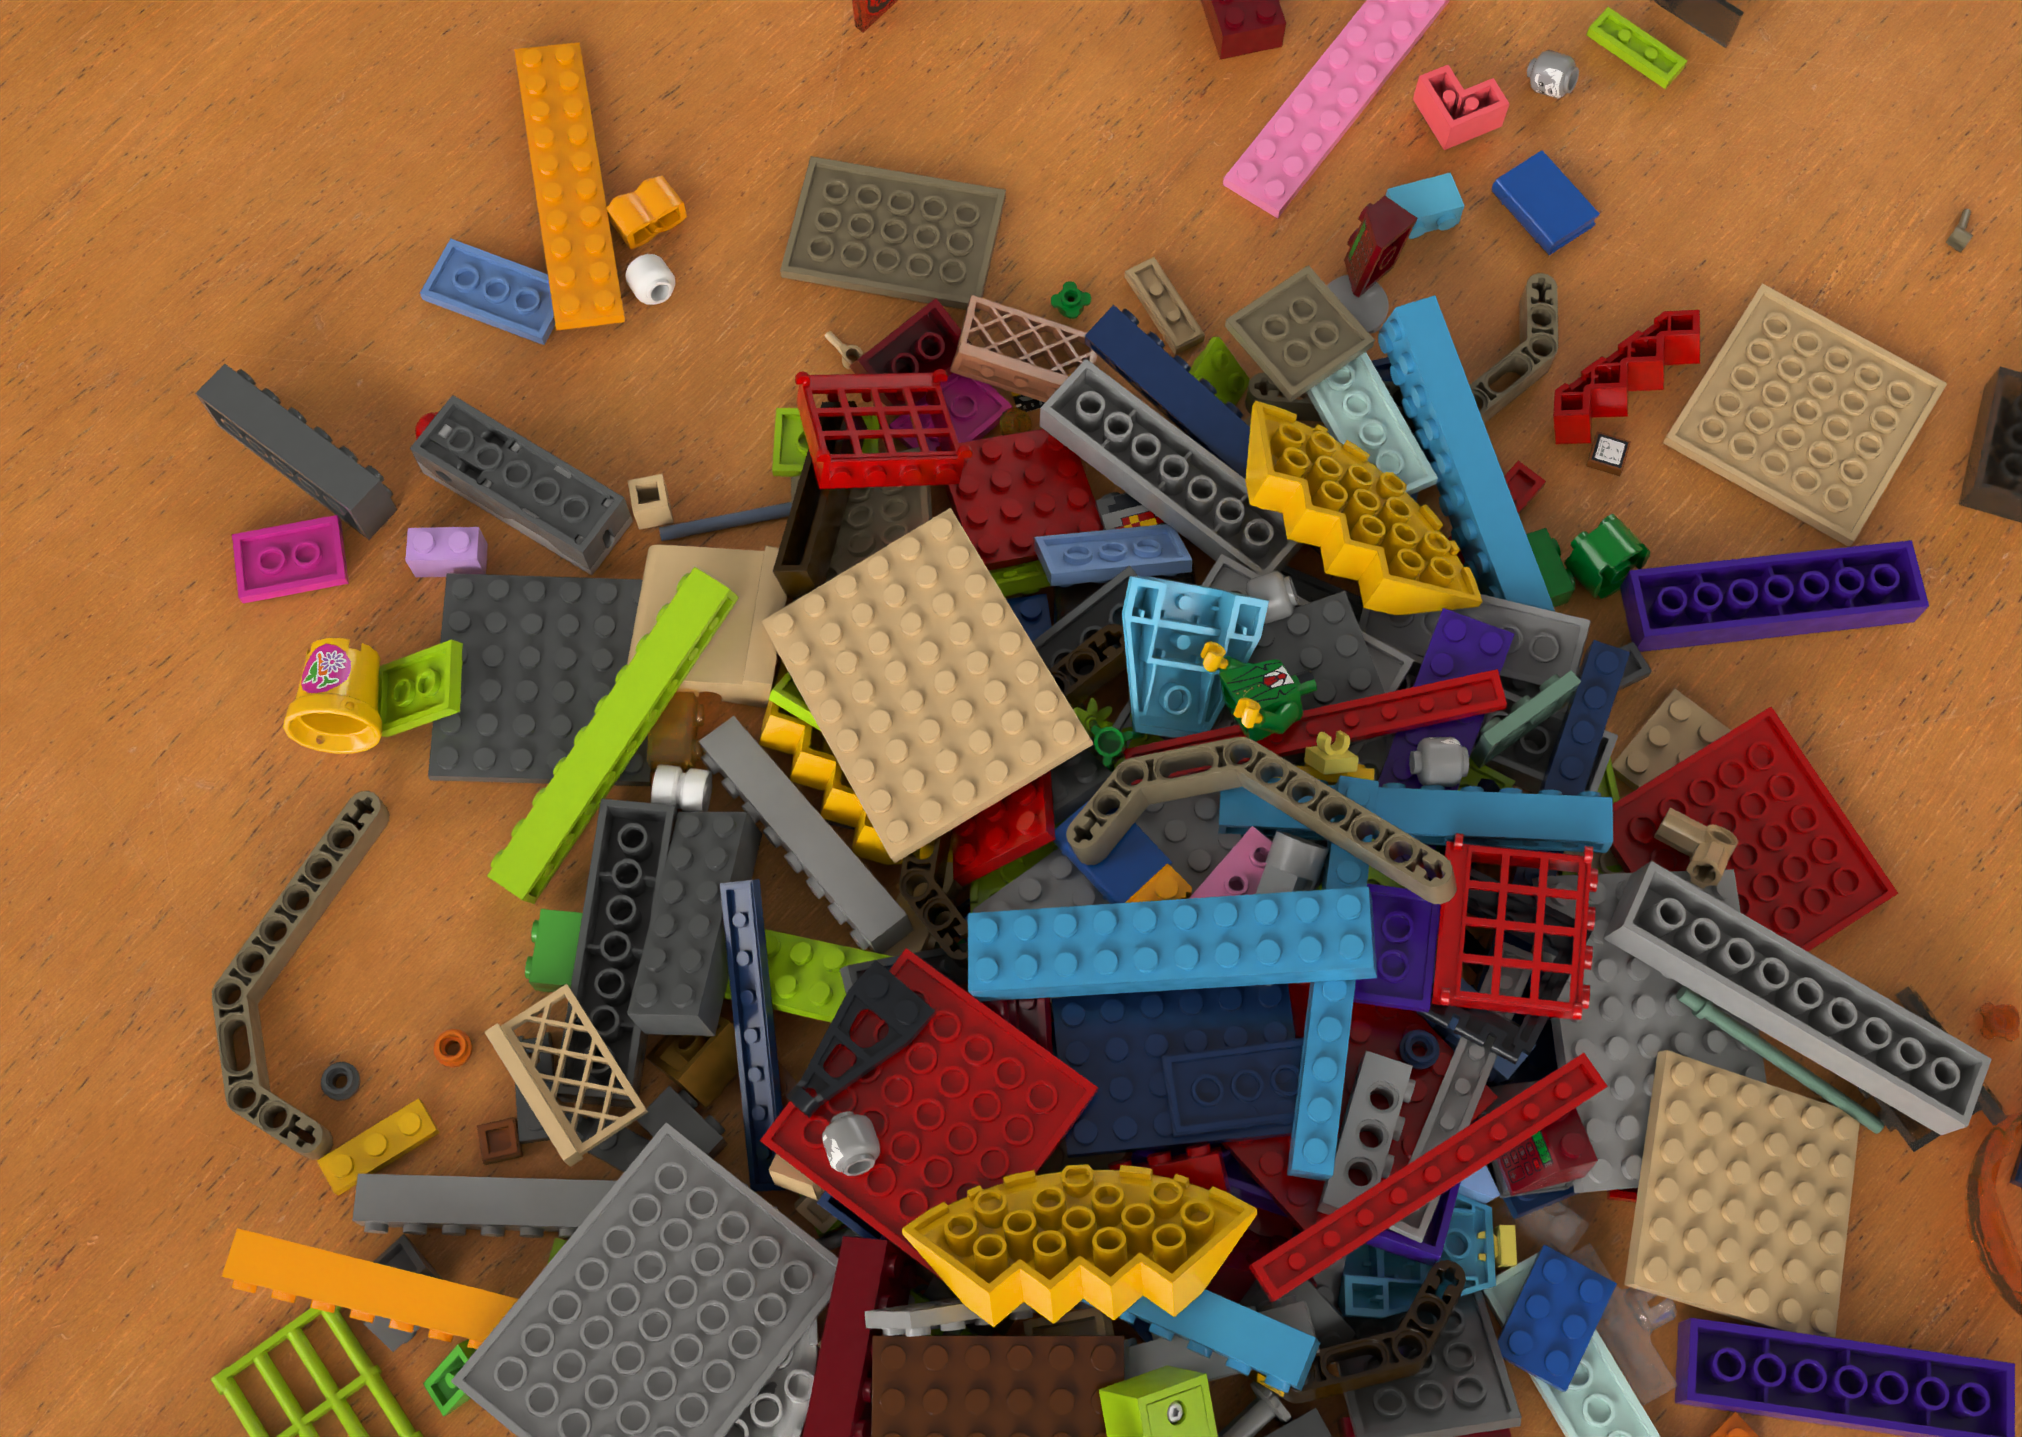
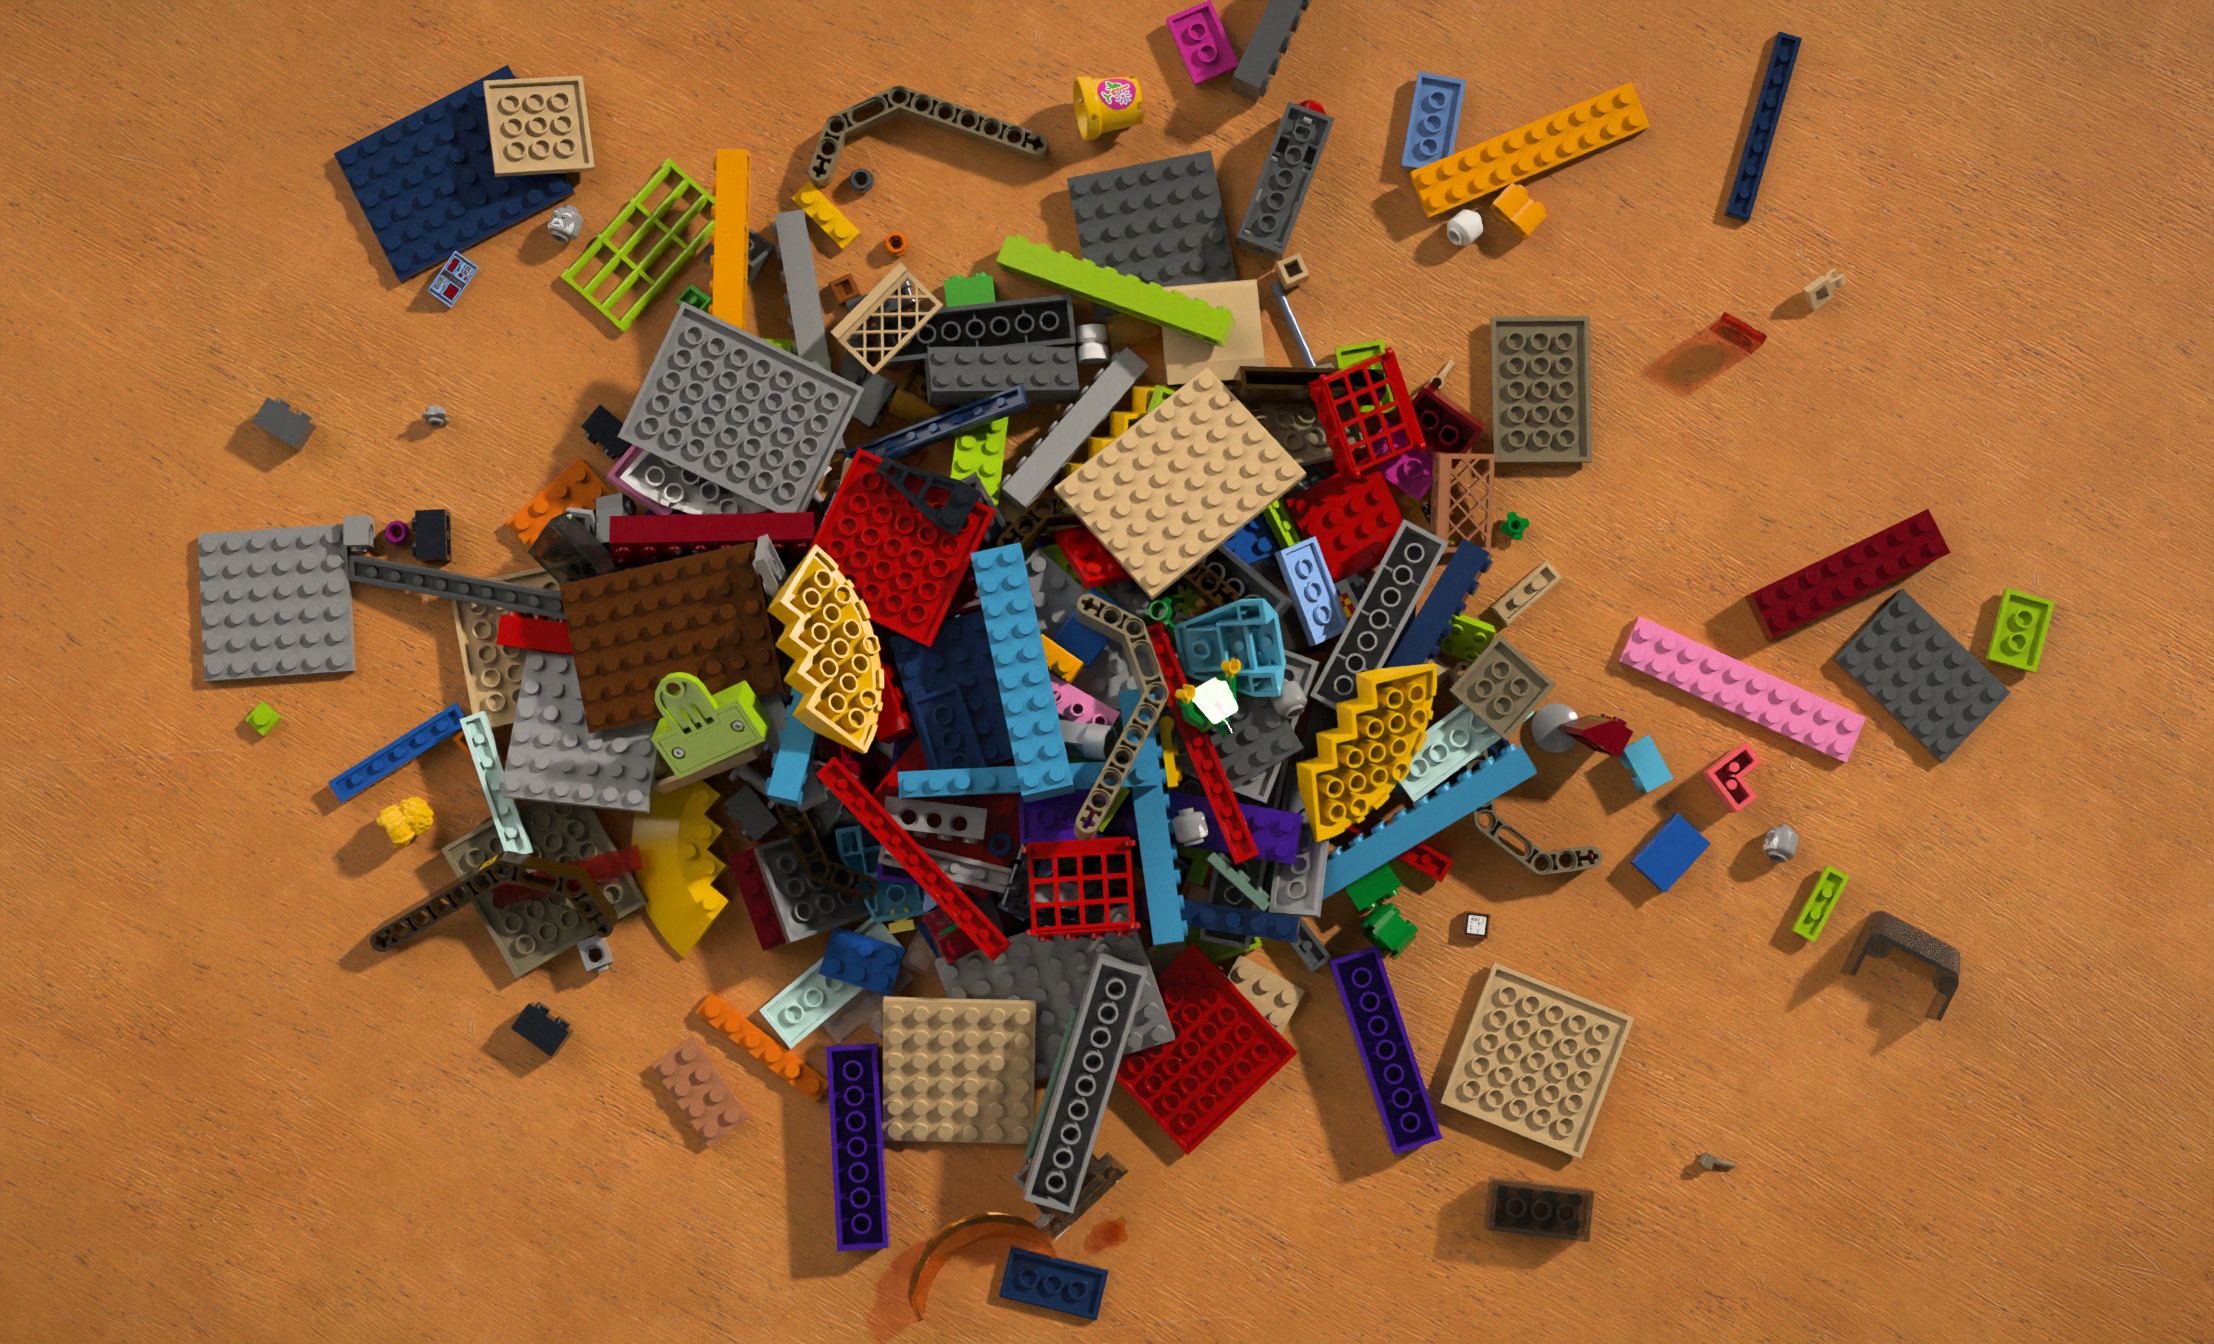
camera: 75 degrees right, 15 degrees up
(420, 688) = (1124, 156): lime plate -> none
(446, 550) = (1227, 145): lavender brick -> none
(851, 1143) = (863, 503): light grey head -> none
(1334, 757) = (1178, 756): light yellow tile -> none
(1633, 367) = (1546, 934): red brick -> none
(1705, 845) = (1184, 1018): tan piece -> none

